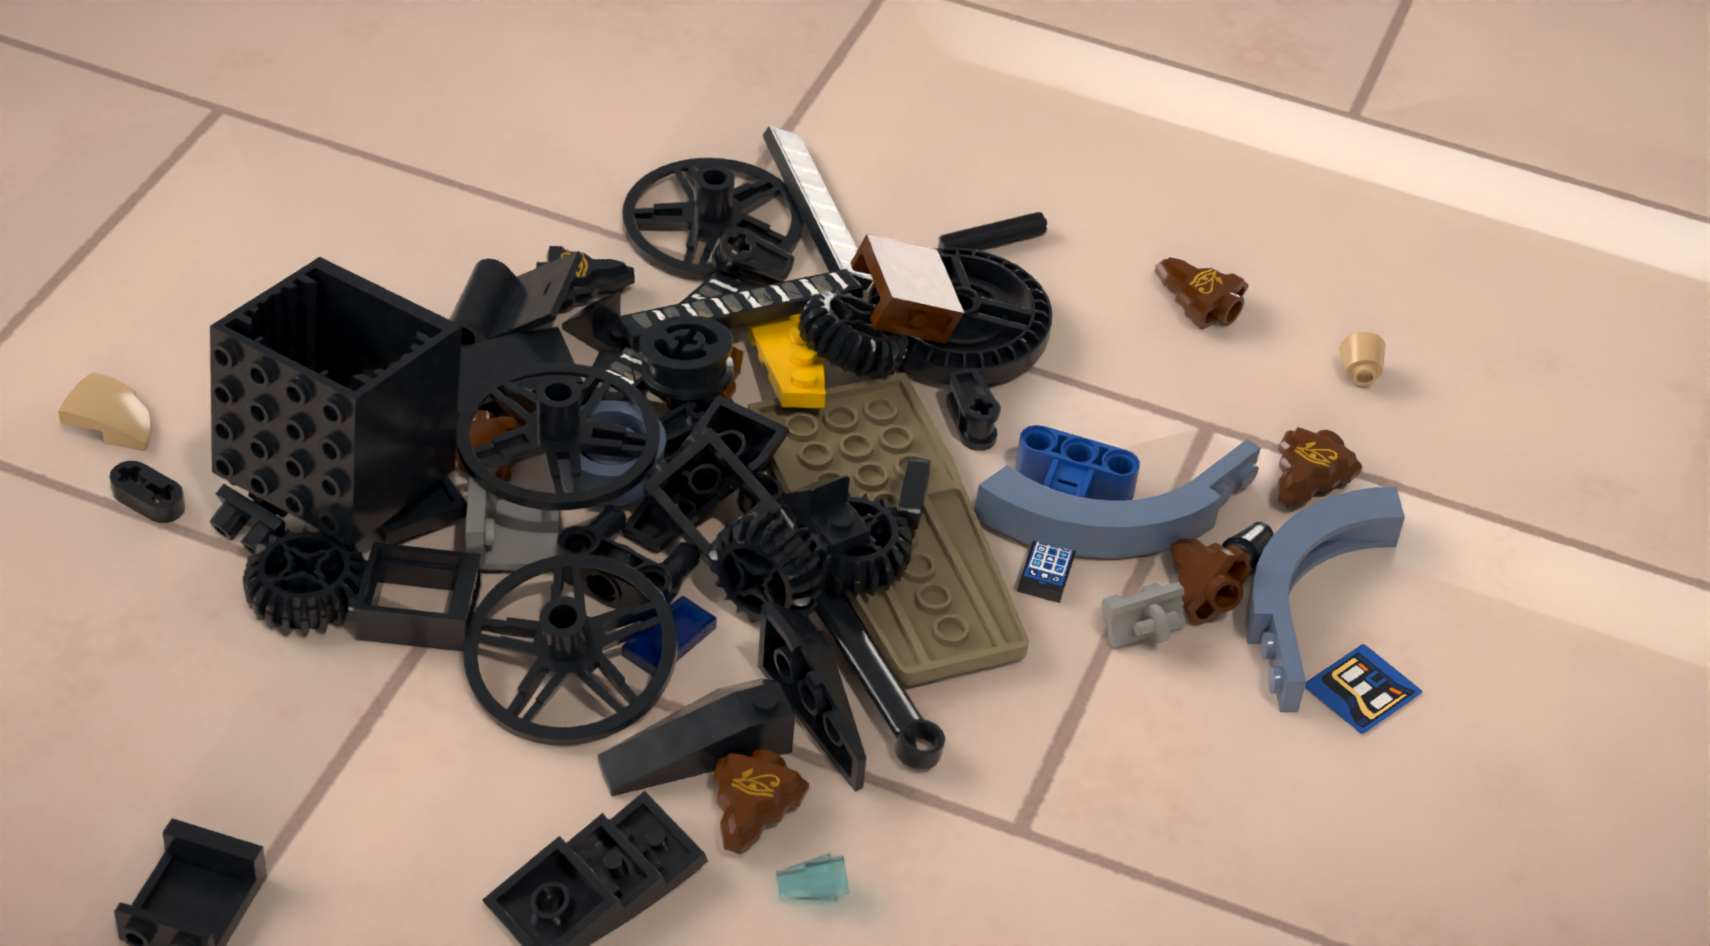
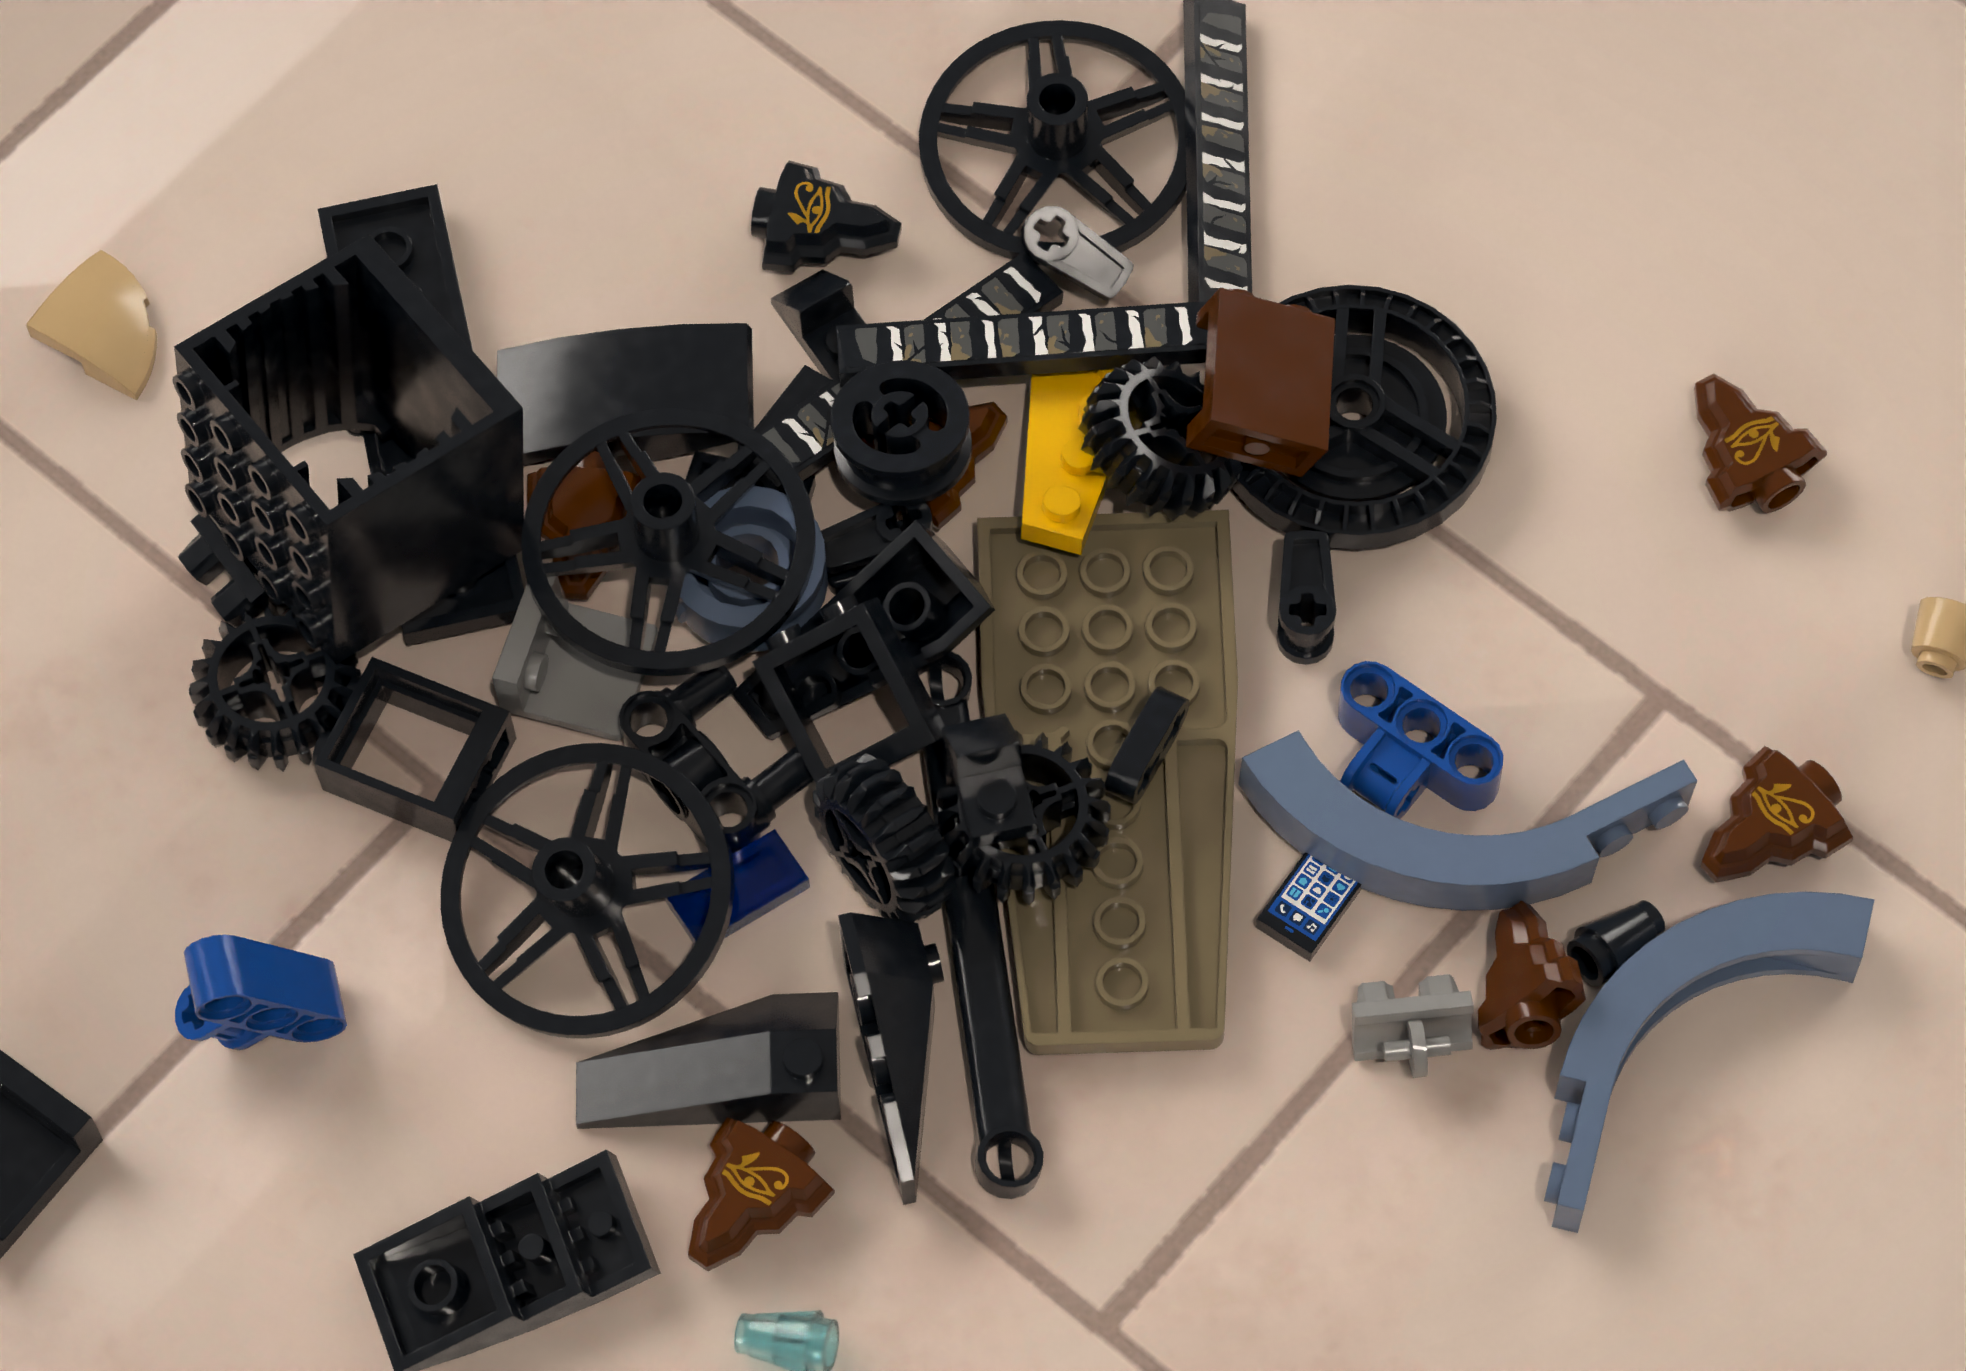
camera: 25 degrees right, 20 degrees up
(151, 487) = (126, 471): black beam -> none
(359, 747) = (257, 991): none -> blue piece
(505, 304) = (695, 257): black door -> none
(996, 232) = (1471, 262): black axle -> none
(1362, 688) = (1689, 1218): sticker -> none

